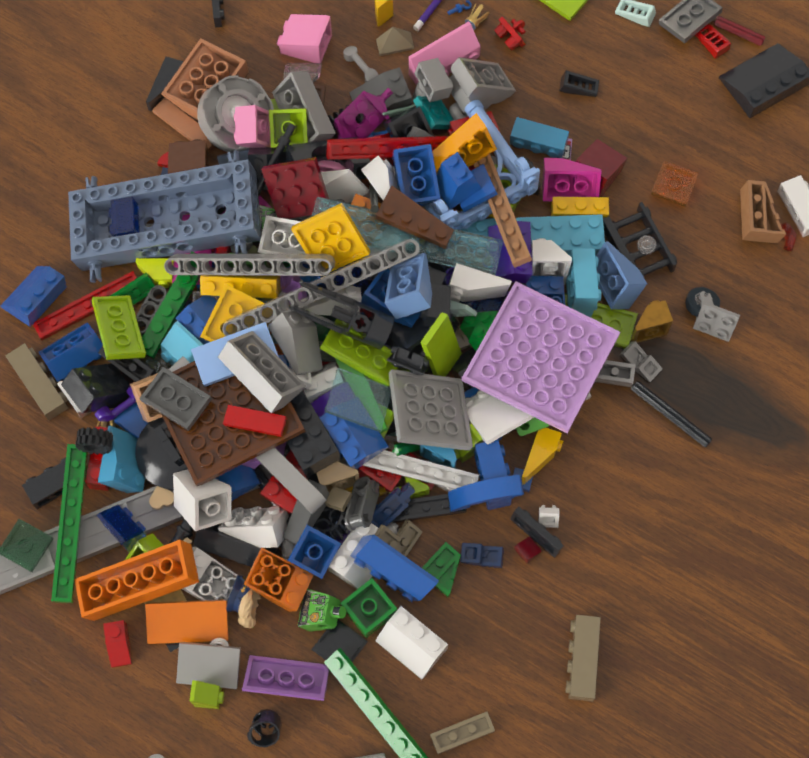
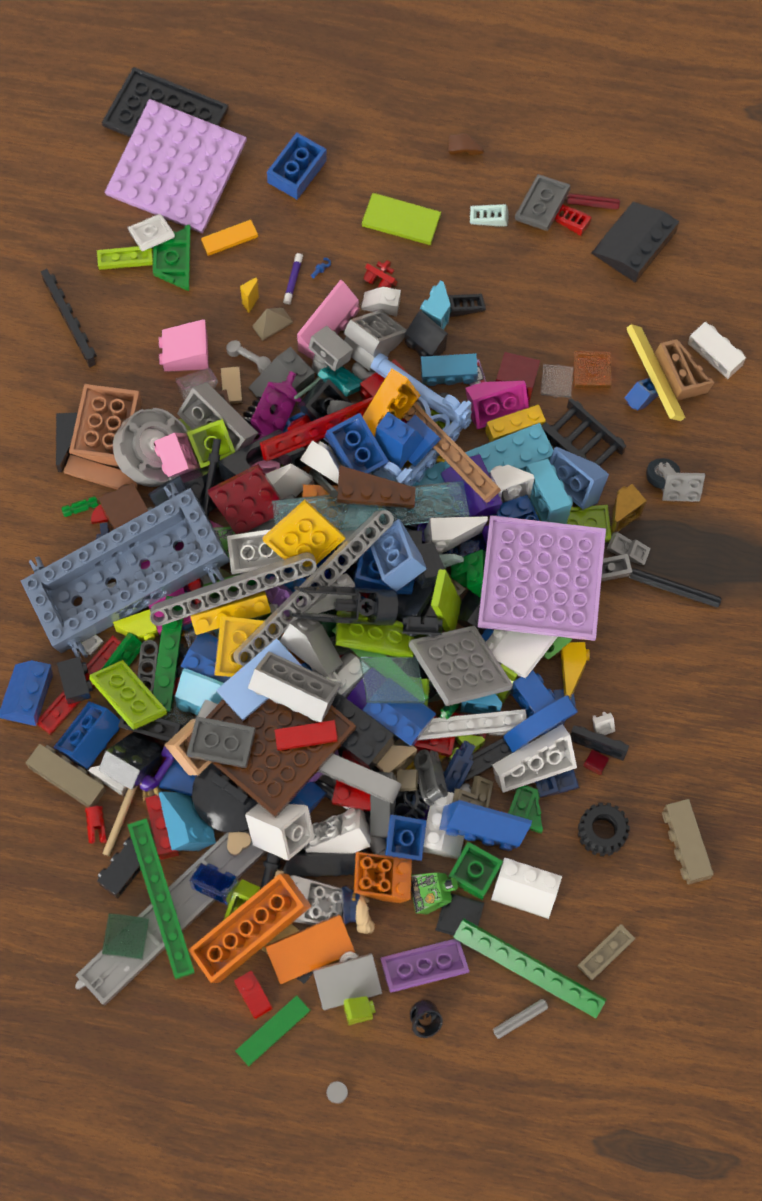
camera: 25 degrees left, 0 degrees up
(45, 431) = (95, 821): none -> red hinge
(67, 439) = (119, 821): none -> tan bar
(79, 298) = (74, 680): none -> black brick
(94, 440) = (154, 811): black tyre -> none
(111, 272) = (92, 644): none -> white tile
(122, 684) = (272, 1031): none -> green tile
(124, 216) = (87, 586): clear blue brick -> none
(152, 146) = (79, 506): none -> green axle
(335, 84) = (232, 383): none -> tan tile
(469, 526) = (537, 760): none -> white wedge
(473, 17) = (338, 272): pearl gold piece -> none
(505, 55) = (382, 299): none -> white slope
(511, 598) = (609, 814): none -> black tyre
(528, 100) = (425, 336): none -> black slope
(547, 79) = (437, 305): none -> medium azure slope
(637, 183) = (556, 381): none -> clear piece
(646, 244) = (591, 437): clear plate -> none
(715, 222) = (641, 394): none -> blue slope
(733, 207) = (655, 373): none -> light yellow tile
(790, 236) = (718, 385): clear red arm -> none

